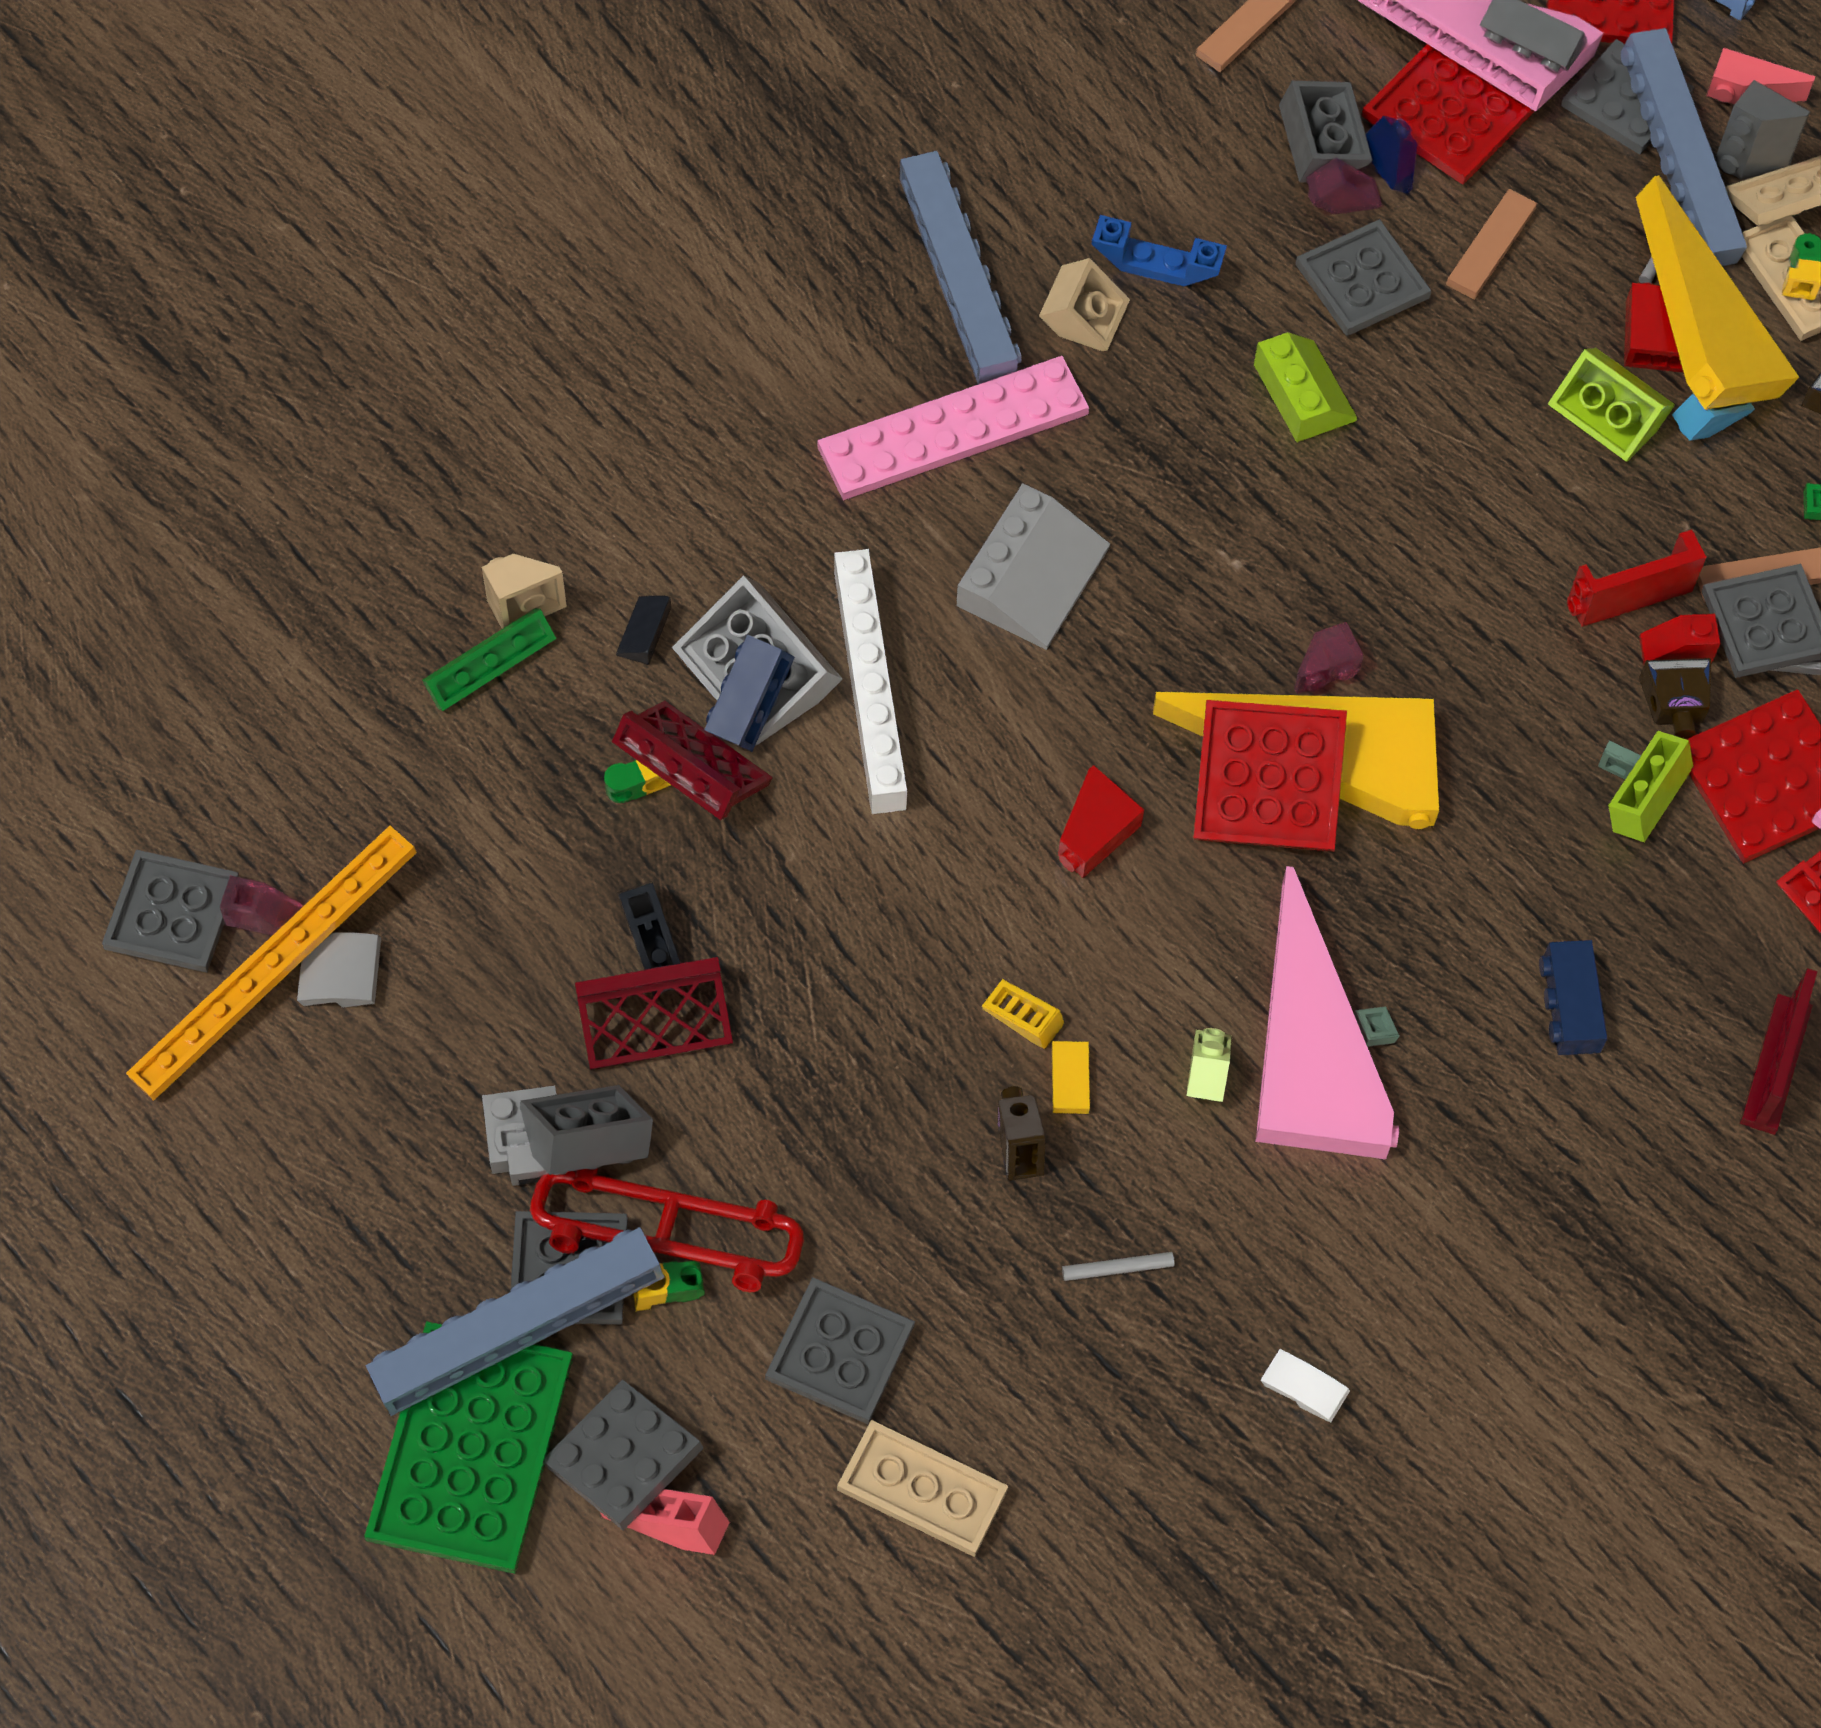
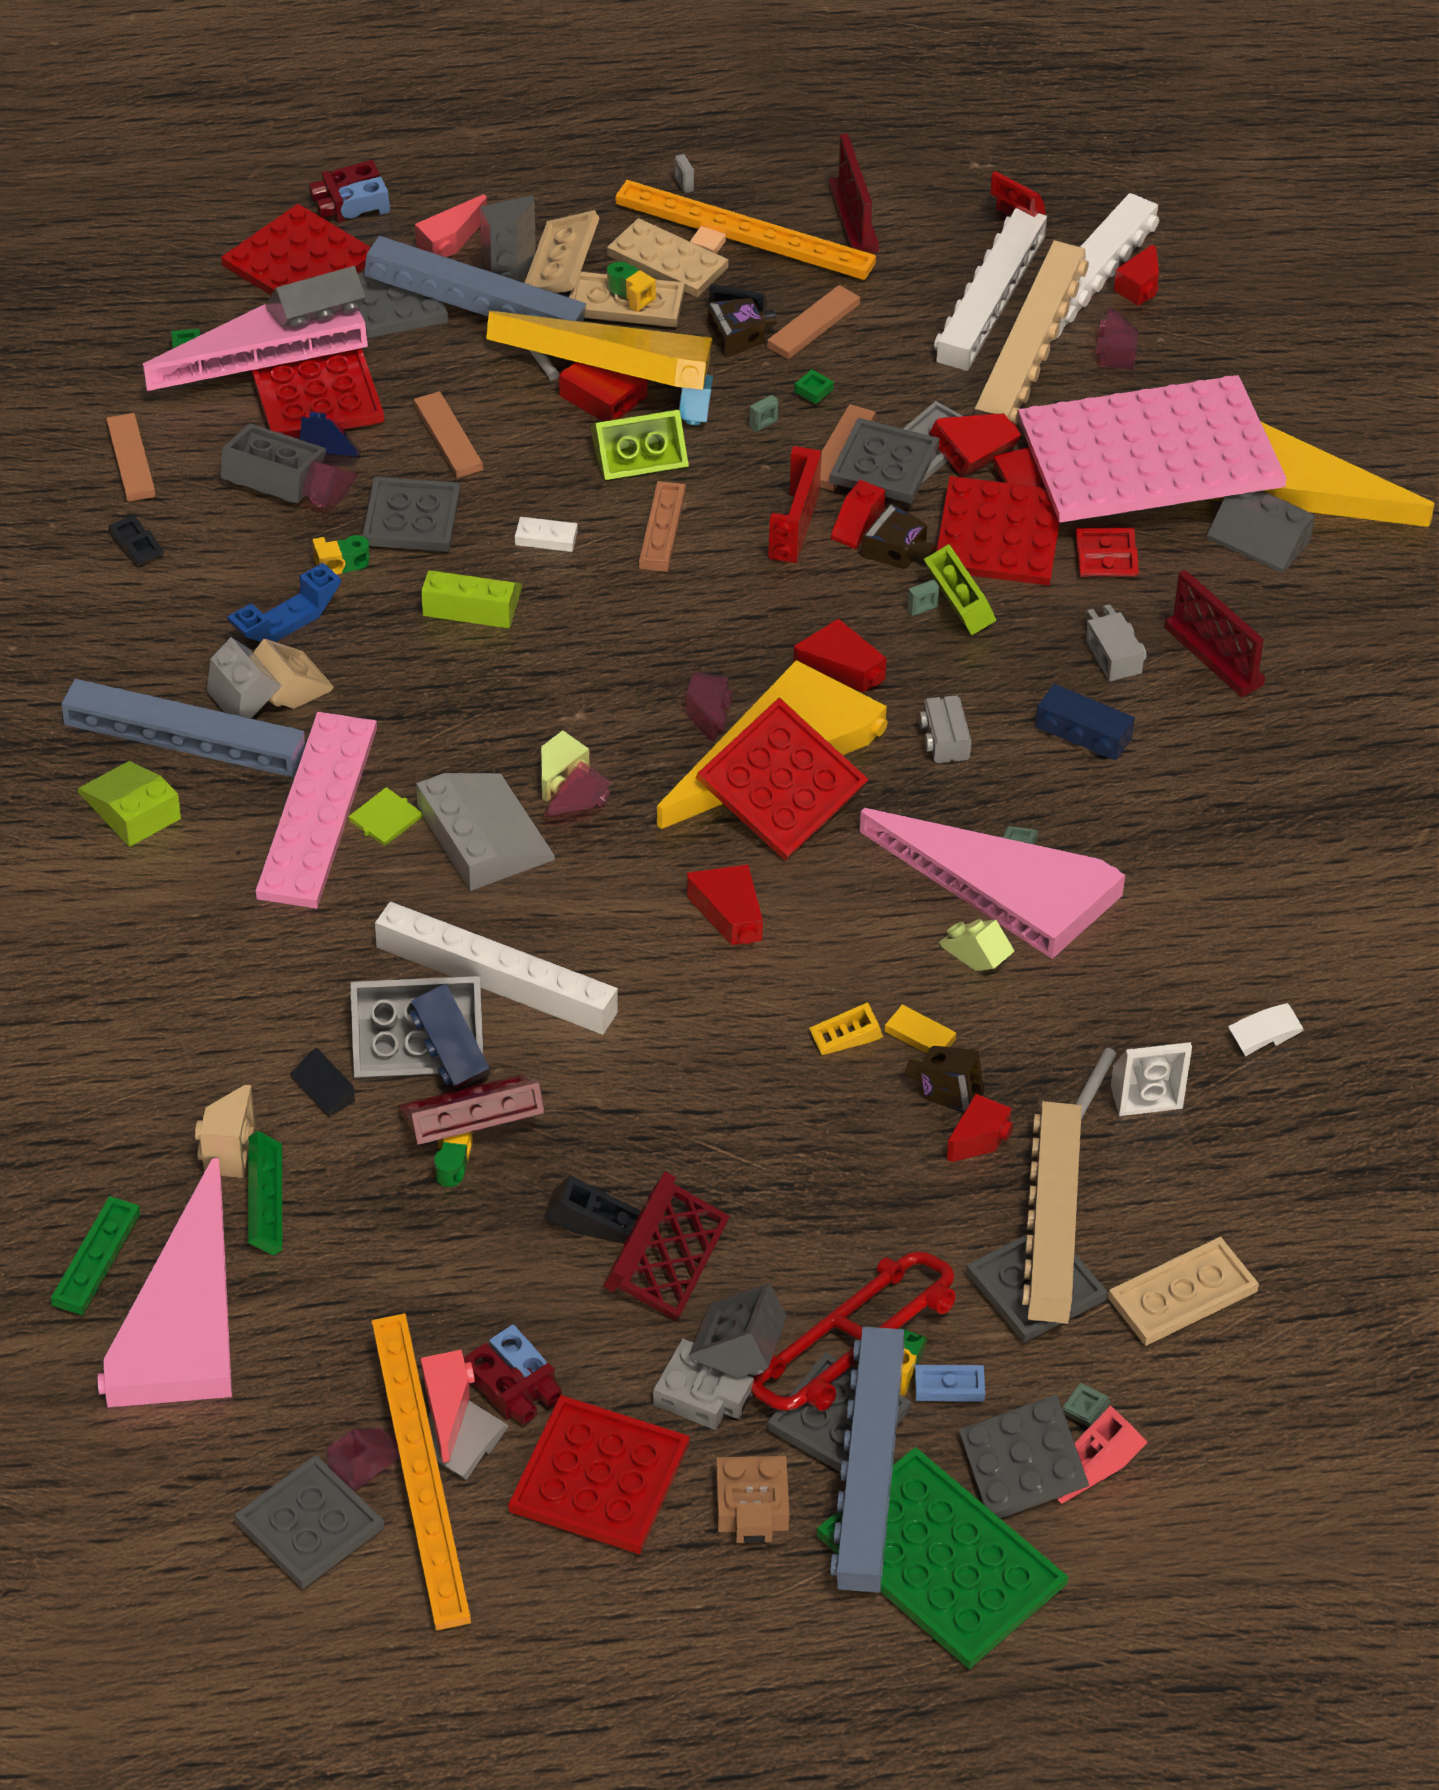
camera: 55 degrees left, 15 degrees down
(304, 684) = (178, 1327): none -> bright pink slope
(335, 576) = (95, 1255): none -> green plate
(353, 935) = (448, 1394): none -> coral slope
(371, 1107) = (599, 1474): none -> red plate
(426, 972) = (513, 1375): none -> dark red hips
(428, 1248) = (752, 1497): none -> medium nougat piece
(669, 1341) = (950, 1383): none -> medium blue plate
(726, 1475) = (1086, 1405): none -> sand green tile
(845, 283) = (133, 801): none -> lime slope
(923, 1317) = (1053, 1213): none -> tan brick
(983, 1196) = (980, 1129): none -> red slope
(987, 484) = (385, 816): none -> lime piece
(1039, 273) = (239, 680): none -> light grey slope
(1126, 619) = (579, 792): none -> clear pink slope
(1146, 1313) = (1151, 1079): none -> white slope
(1150, 91) = (134, 541): none -> black slope
(1150, 584) = (558, 760): none -> yellowish green slope
(1262, 255) = (342, 555): none -> leg
(1435, 399) = (546, 534): none -> white plate
(1463, 879) = (946, 729): none -> light grey brick
(1479, 734) = (842, 656): none -> red slope
(1528, 486) = (662, 526): none -> nougat tile
(1702, 964) = (1114, 644): none -> light grey hinge
(1745, 481) = (763, 413): none -> sand green tile

